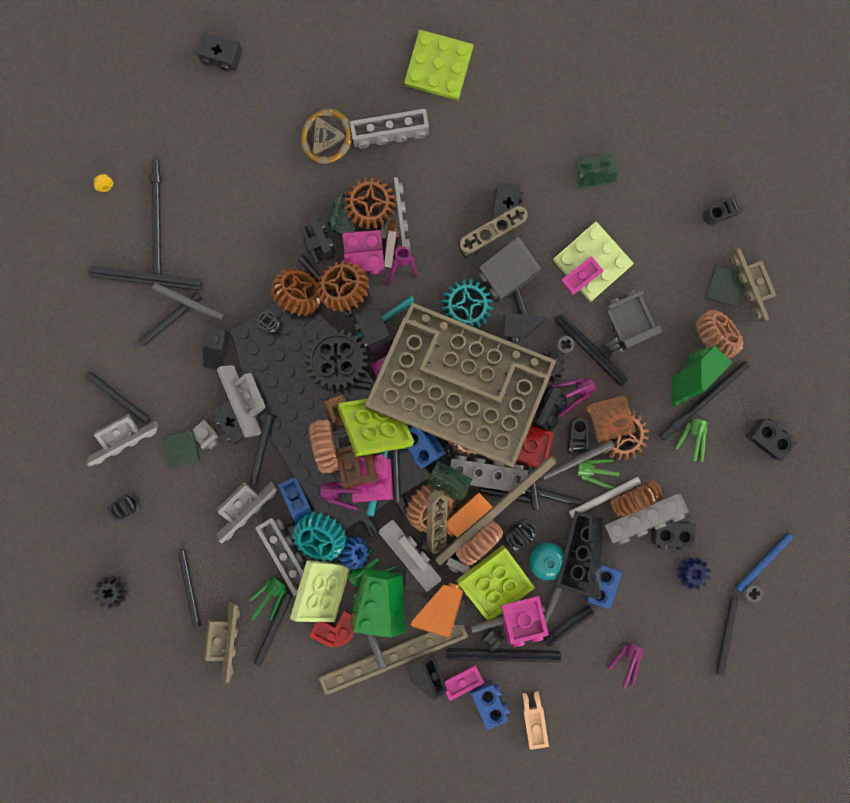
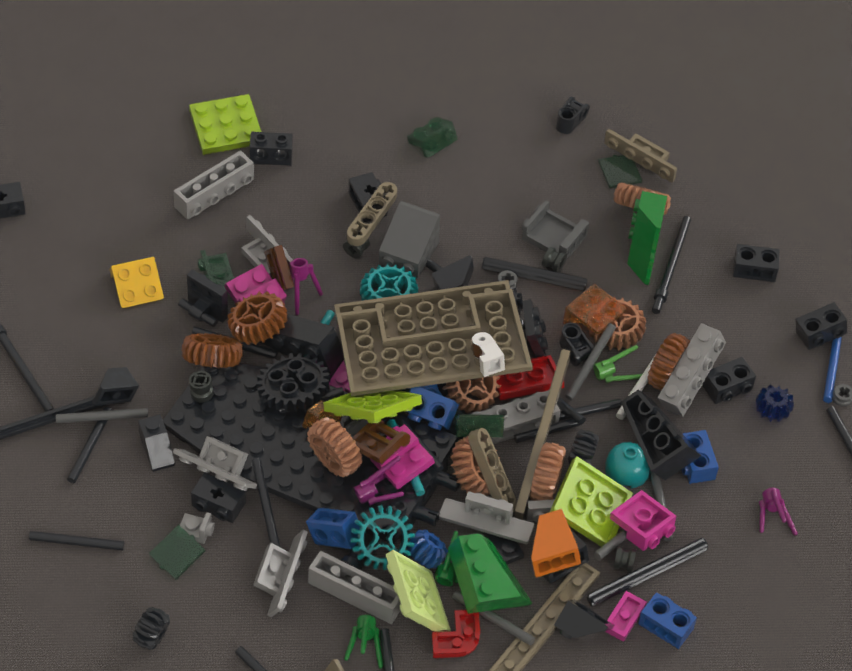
camera: 30 degrees left, 35 degrees down
(119, 436) = (100, 569): light grey bracket -> none
(209, 282) = (116, 387): none -> black slope
(280, 188) = (137, 282): none -> yellow bracket
(326, 136) = (156, 217): piece -> none
(378, 204) = (236, 246): dark orange gear -> none
(457, 113) = (271, 148): none -> black brick
(467, 514) = (519, 452): orange slope -> none
(486, 430) = (489, 353): none -> white leg
(535, 723) = (725, 613): light nougat hinge -> none
(569, 625) = (692, 512): black axle -> none
(582, 275) = (481, 213): dark pink plate -> none
(584, 387) = (551, 305): magenta plant -> none
(604, 250) = (483, 206): yellowish green plate -> none
(698, 429) = (683, 287): bright green plant -> none
(779, 525) = (821, 326): none -> black brick

